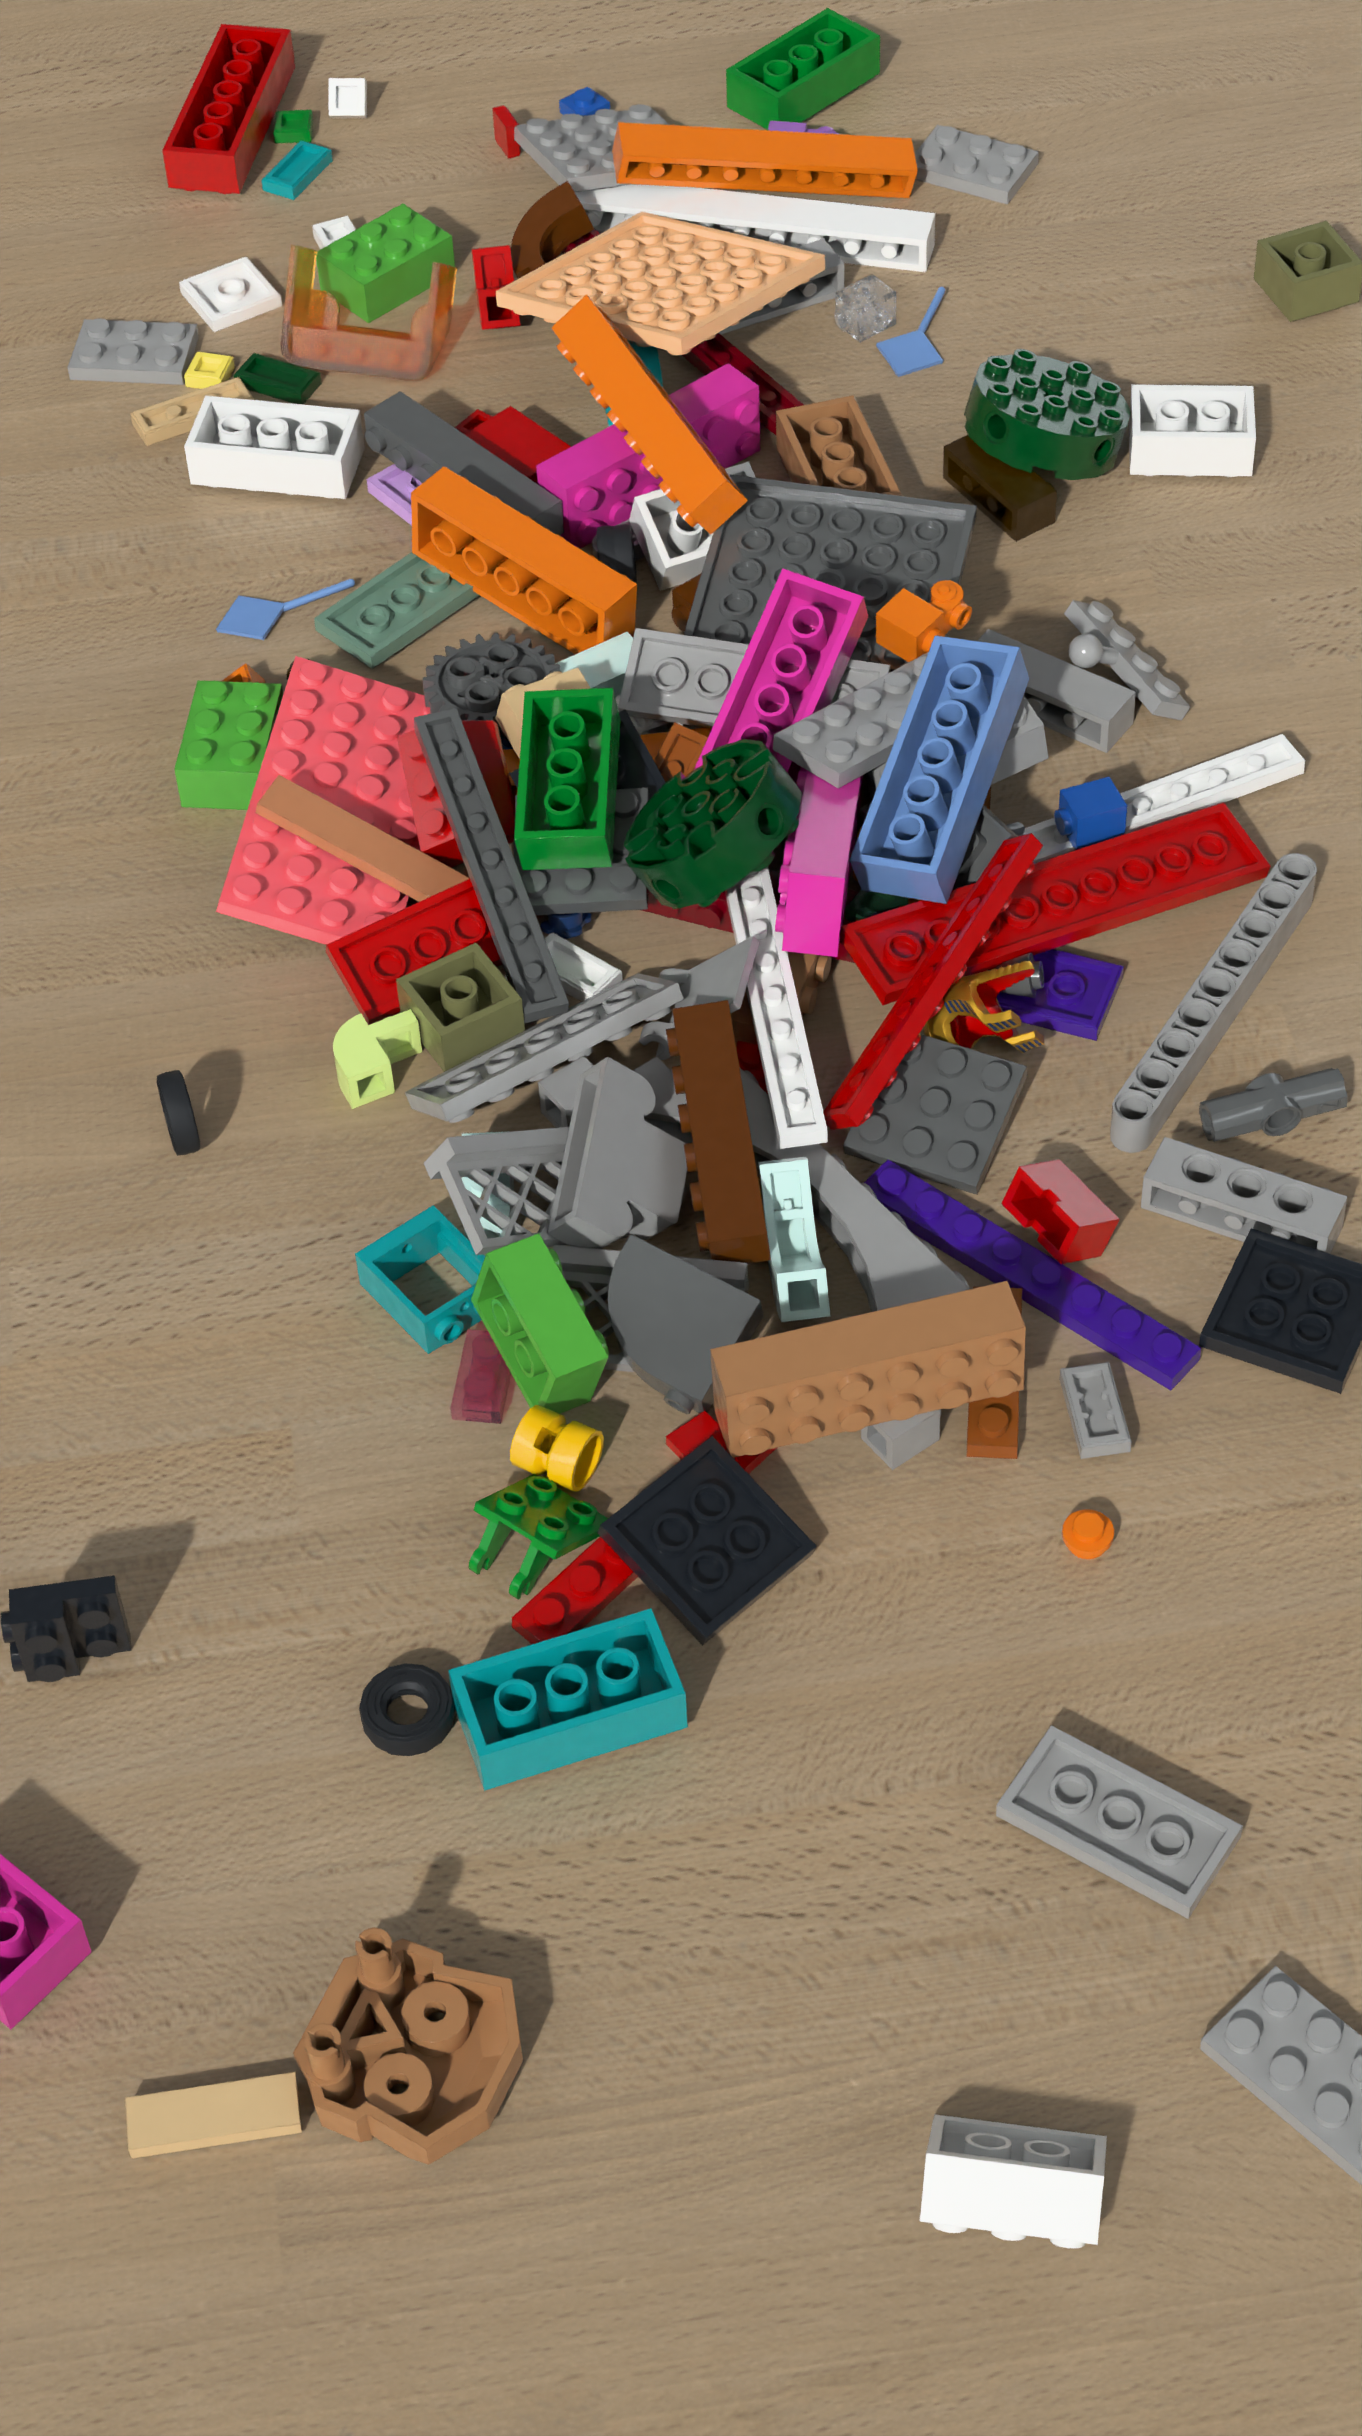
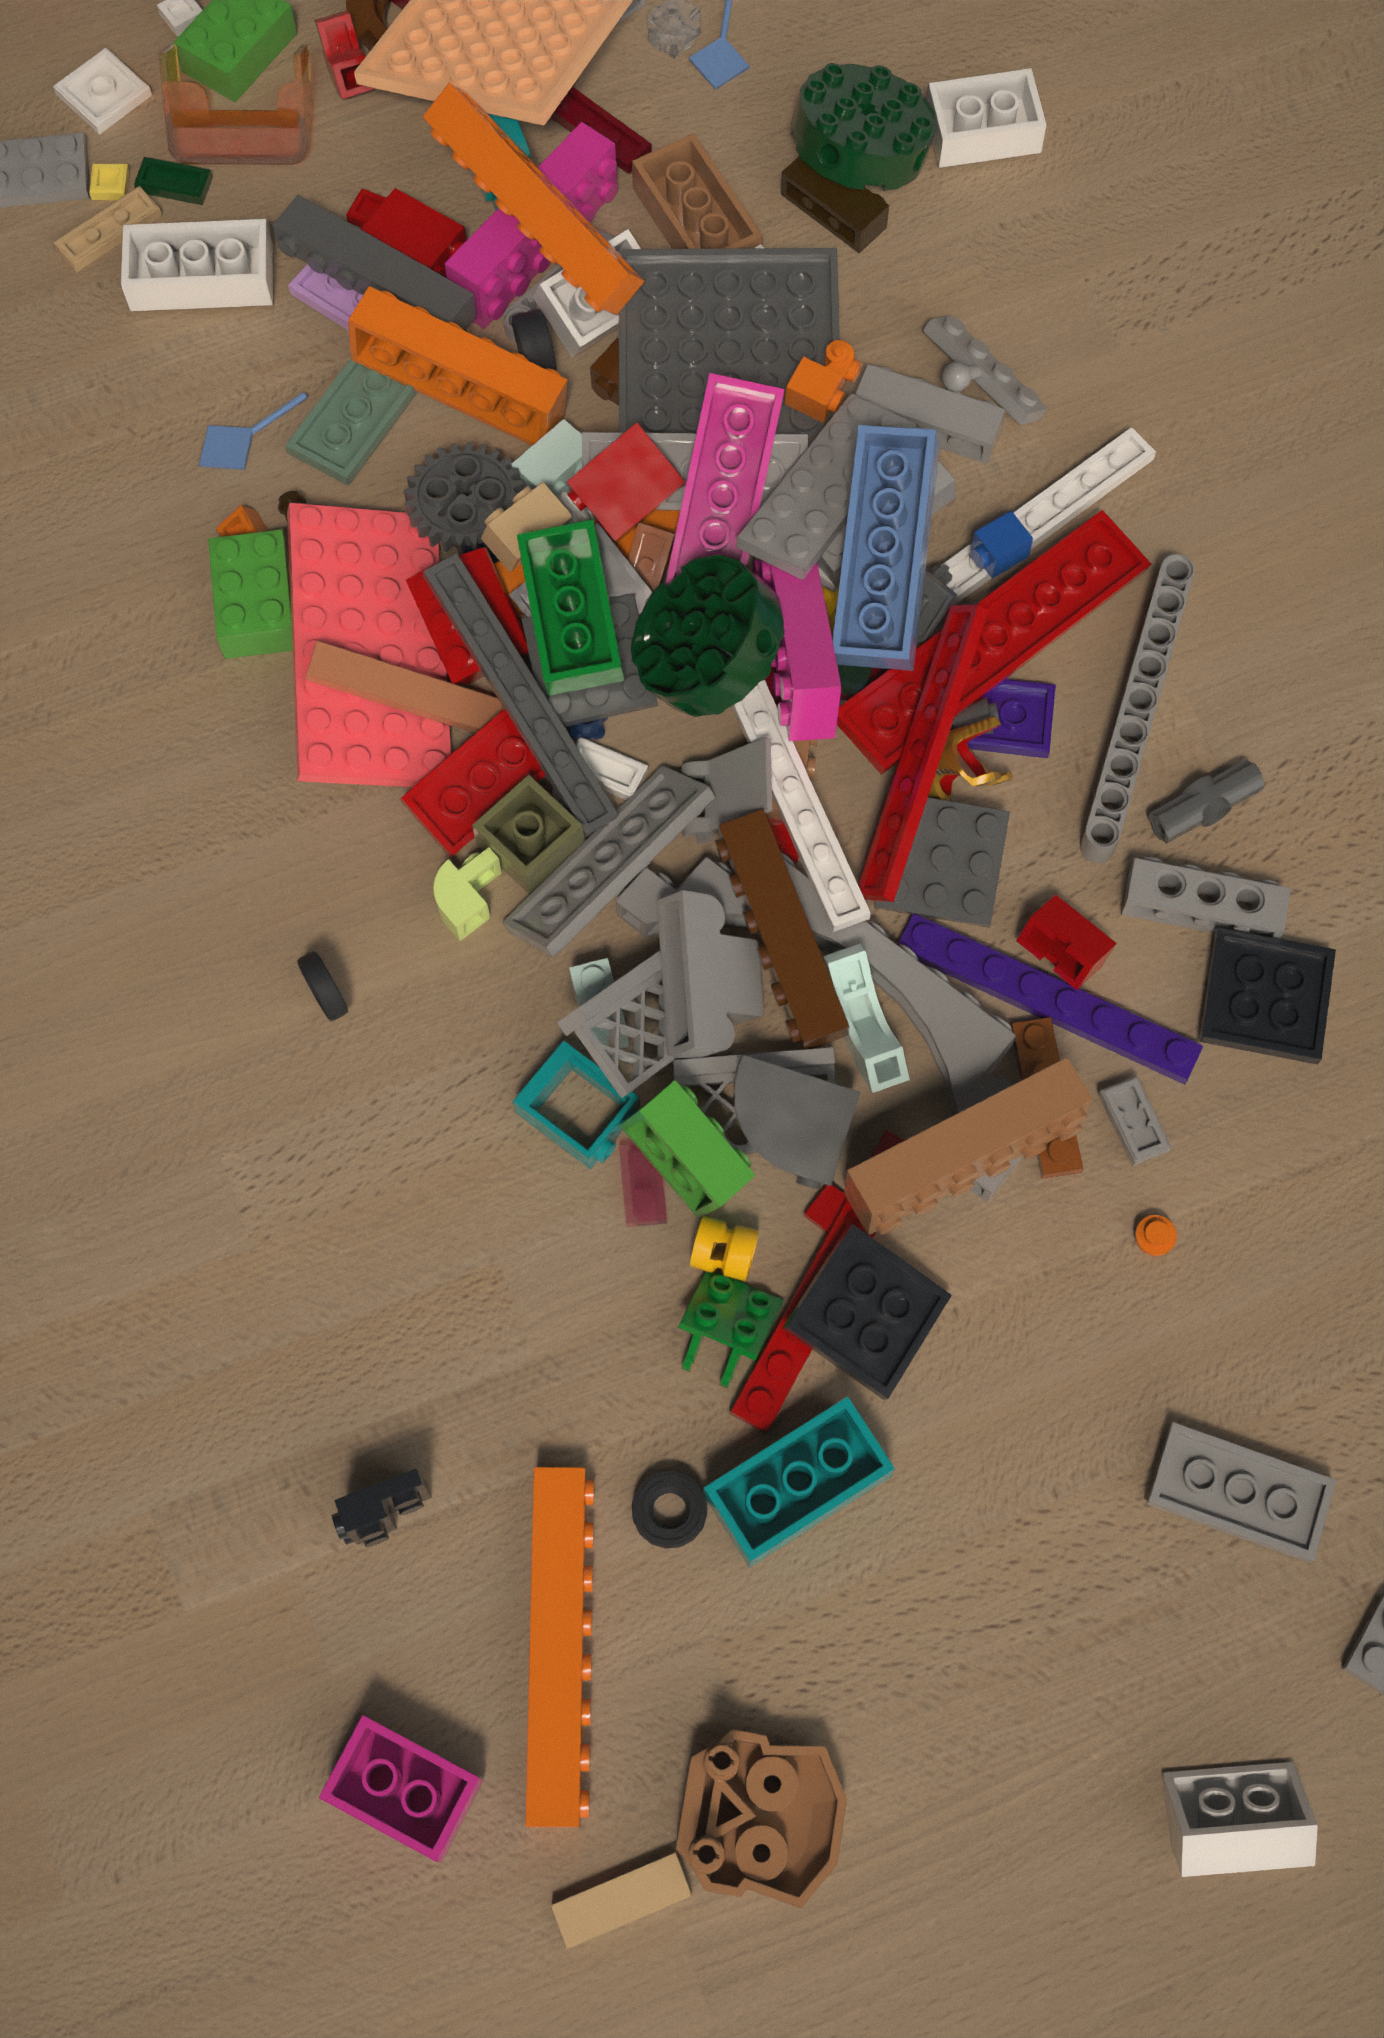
camera: 15 degrees left, 20 degrees up
(223, 1828) = (557, 1649): none -> orange brick
(669, 681) = (625, 483): none -> red brick

